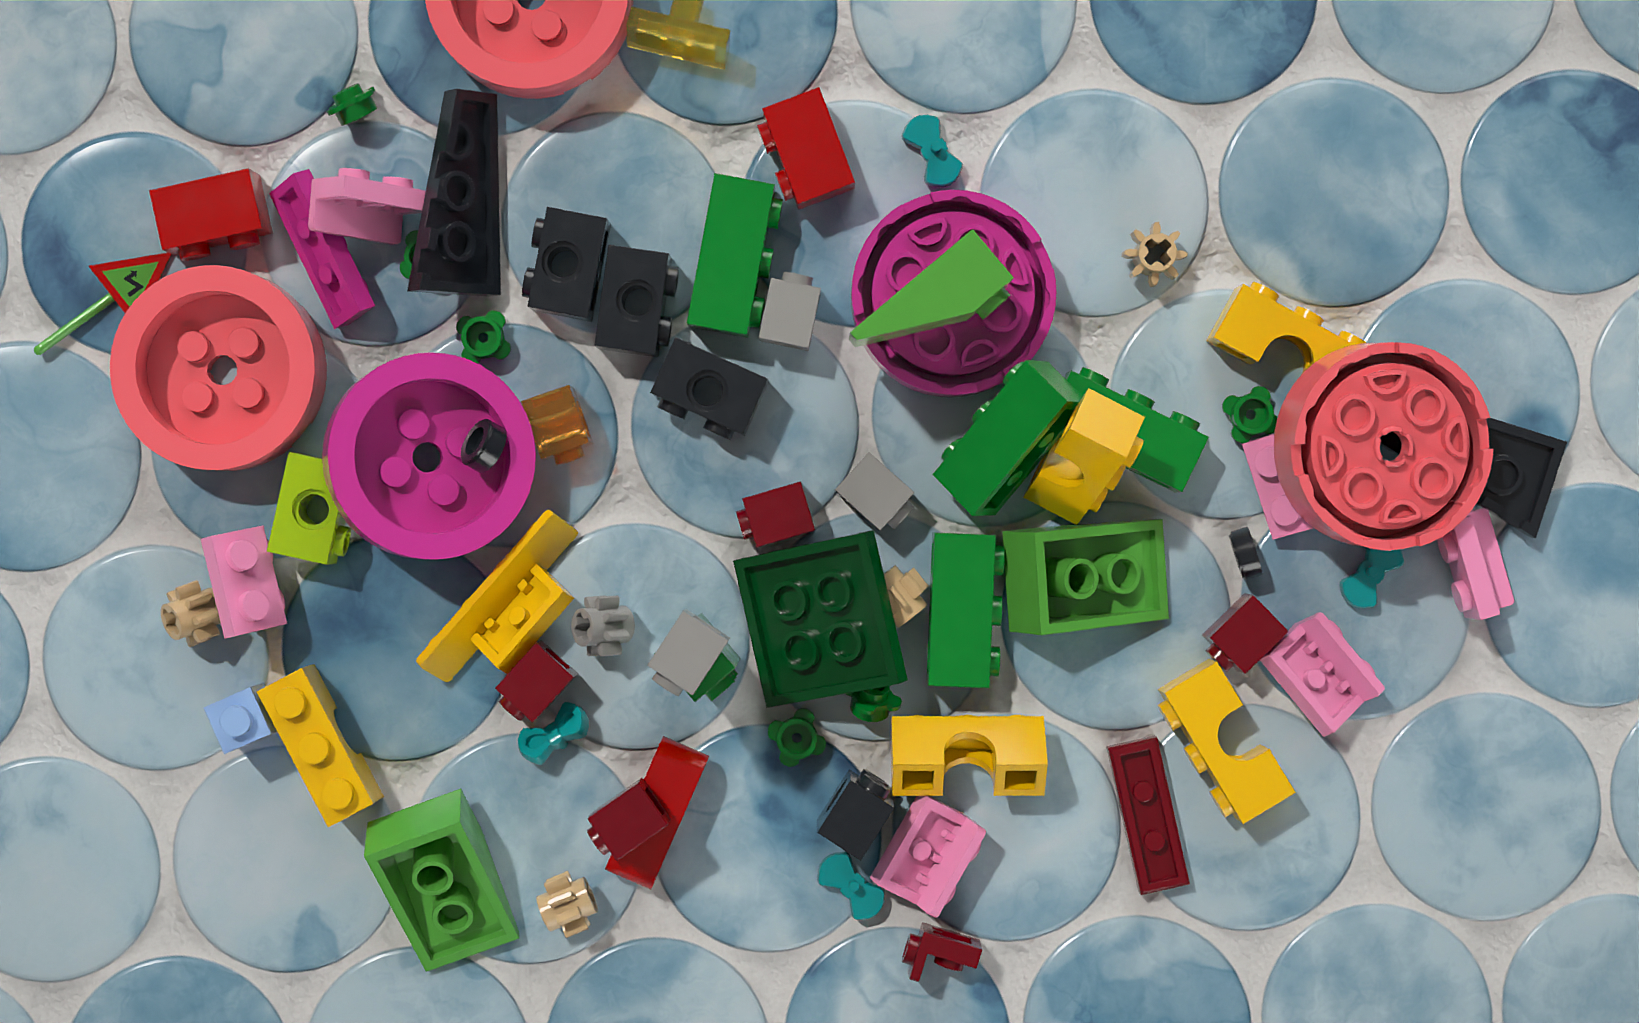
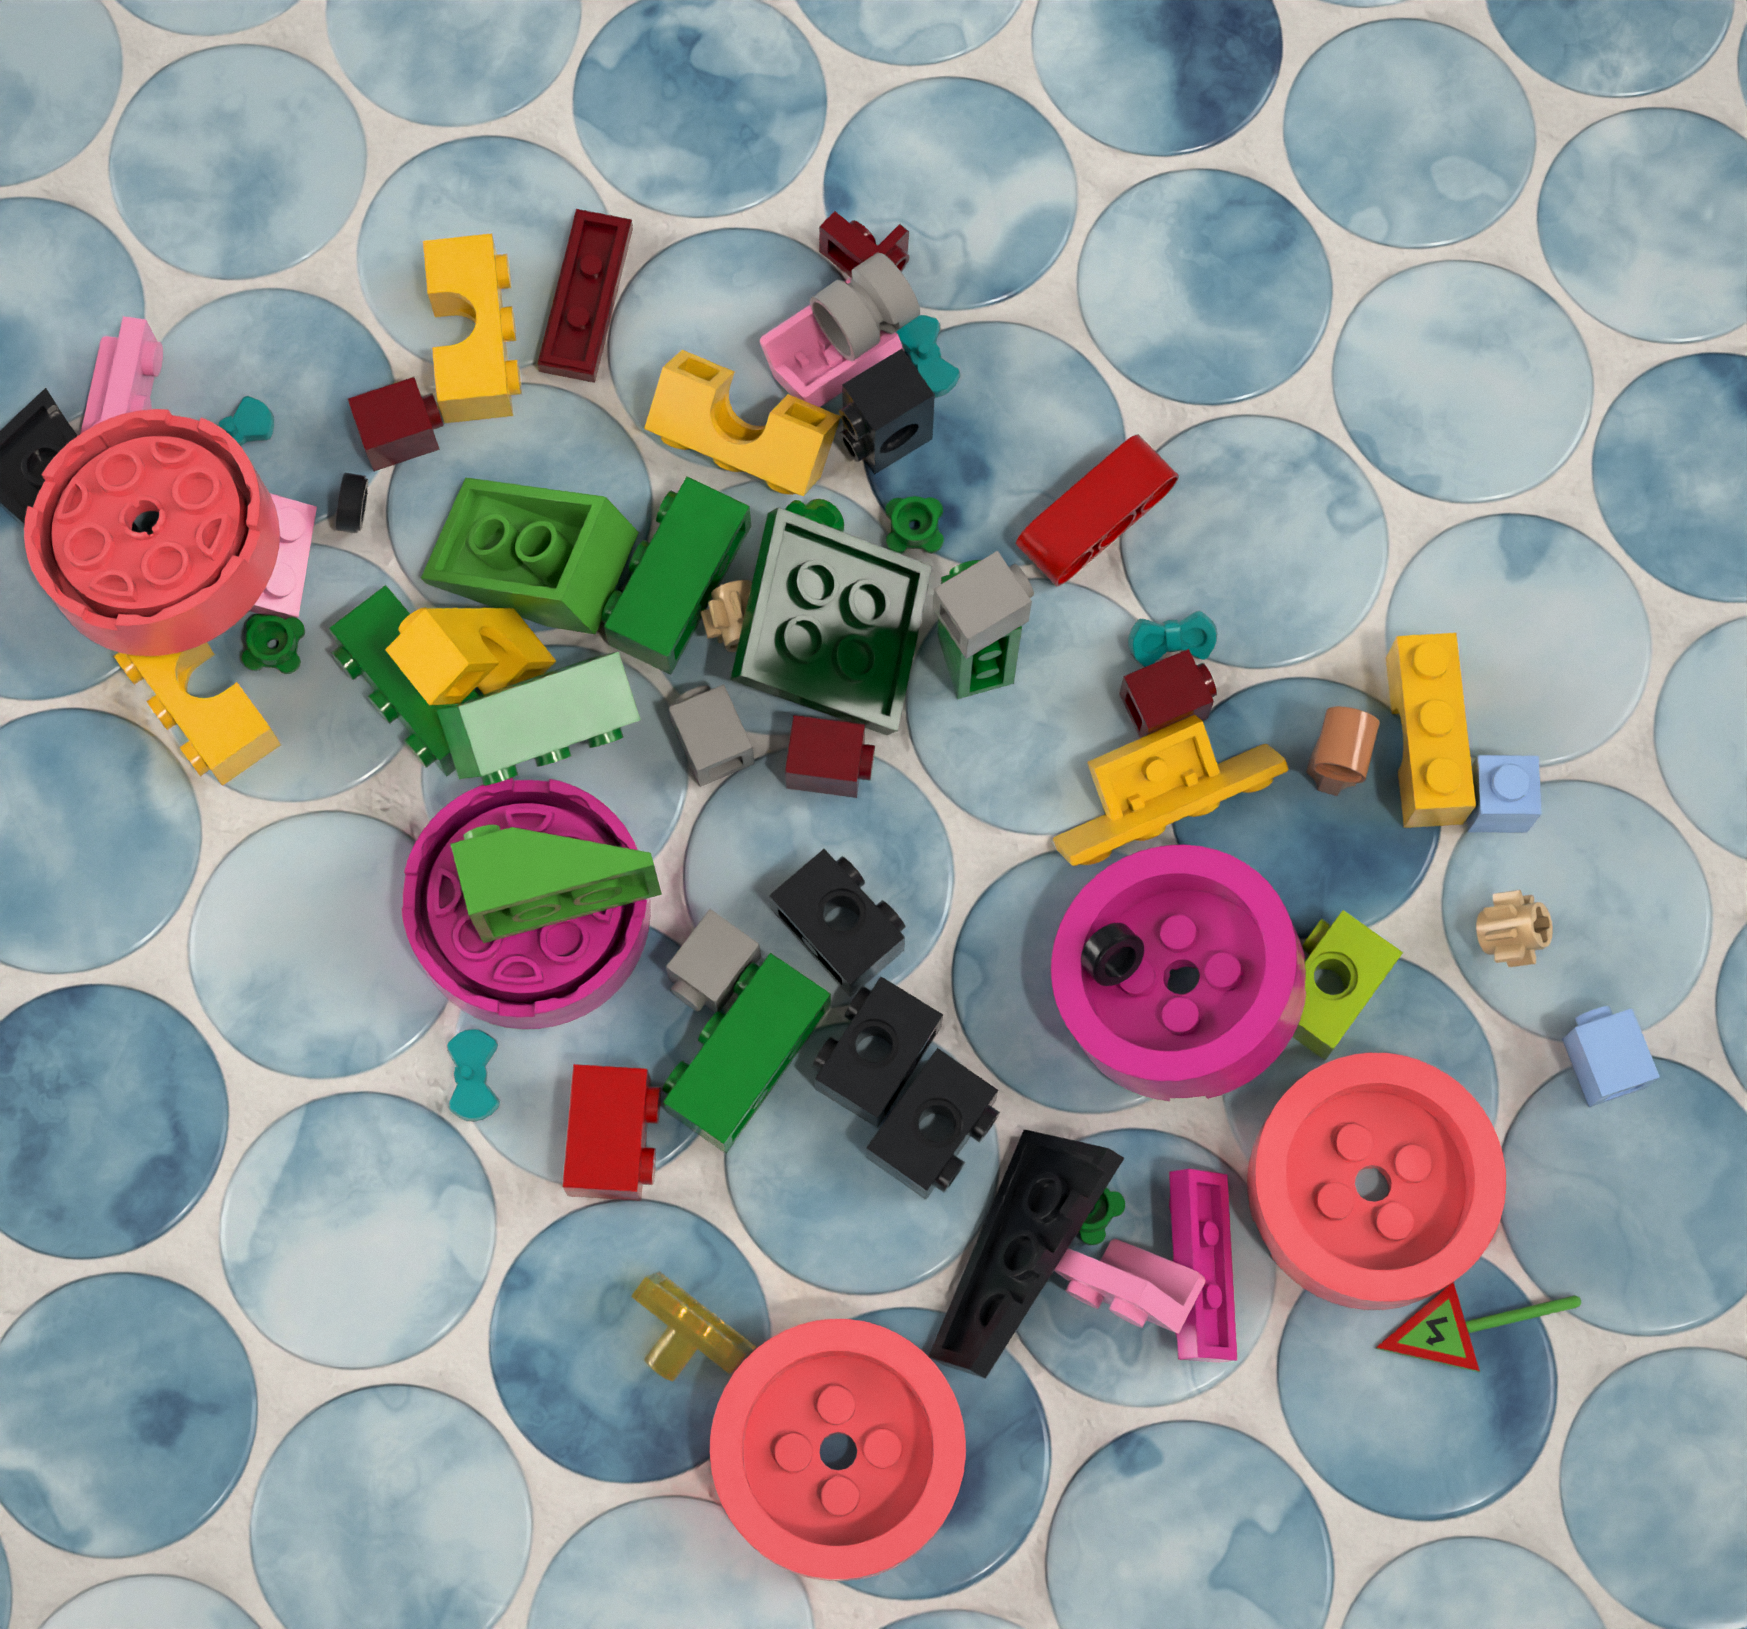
camera: 155 degrees left, 15 degrees down
(82, 546) = (1609, 1055): none -> light blue brick
(211, 214) = (1312, 1361): red brick -> none
(244, 581) = (1441, 932): bright pink bracket -> none
(352, 104) = (1097, 1416): green plate -> none
(377, 691) = (1343, 749): none -> nougat piece
(440, 879) = (1359, 542): bright green slope -> none
(492, 325) = (1079, 1082): green plate -> none
(558, 425) = (1022, 955): clear orange brick -> none
(567, 904) = (1234, 457): tan gear -> none
(602, 625) = (1068, 721): light grey gear -> none
(627, 820) = (1129, 500): dark red brick -> none
(909, 896) = (871, 302): none -> light grey wheel
(1167, 257) = (273, 849): tan gear -> none
(1322, 672) = (334, 349): bright pink bracket -> none

